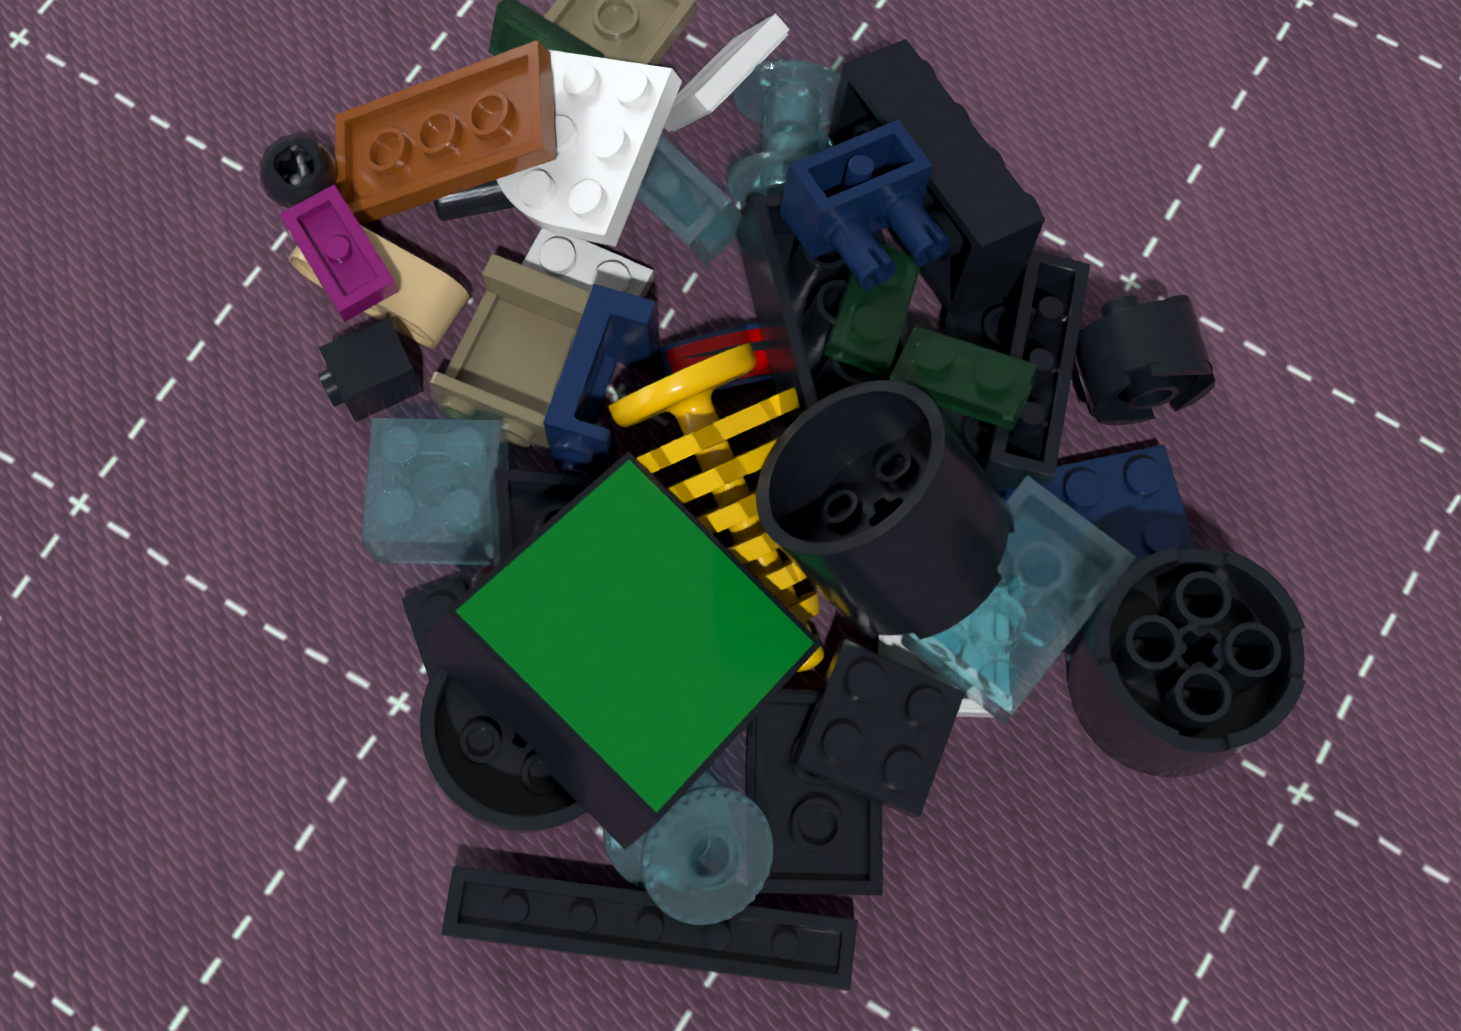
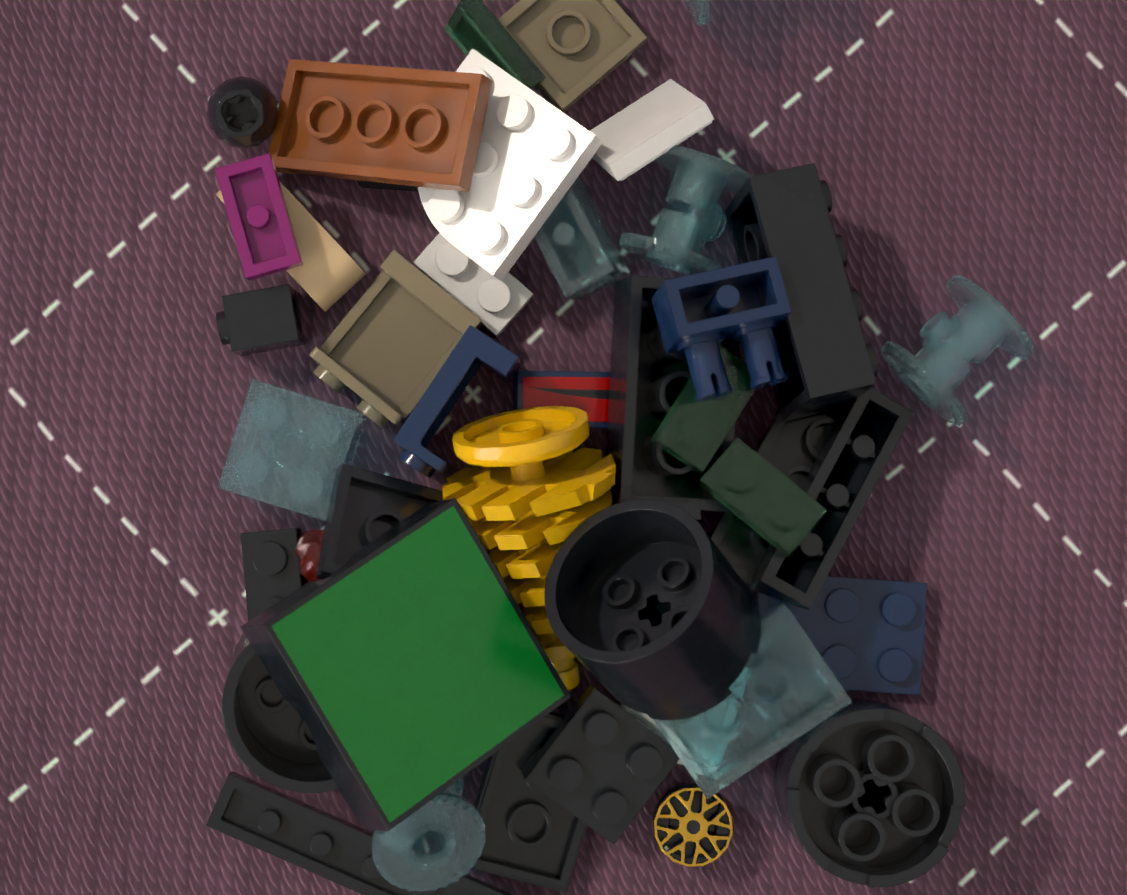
camera: 15 degrees right, 15 degrees up
(1000, 773) = (691, 825): none -> wheel
(1119, 169) = (953, 344): none -> clear light blue hose
(1143, 359) = (930, 510): black brick -> none

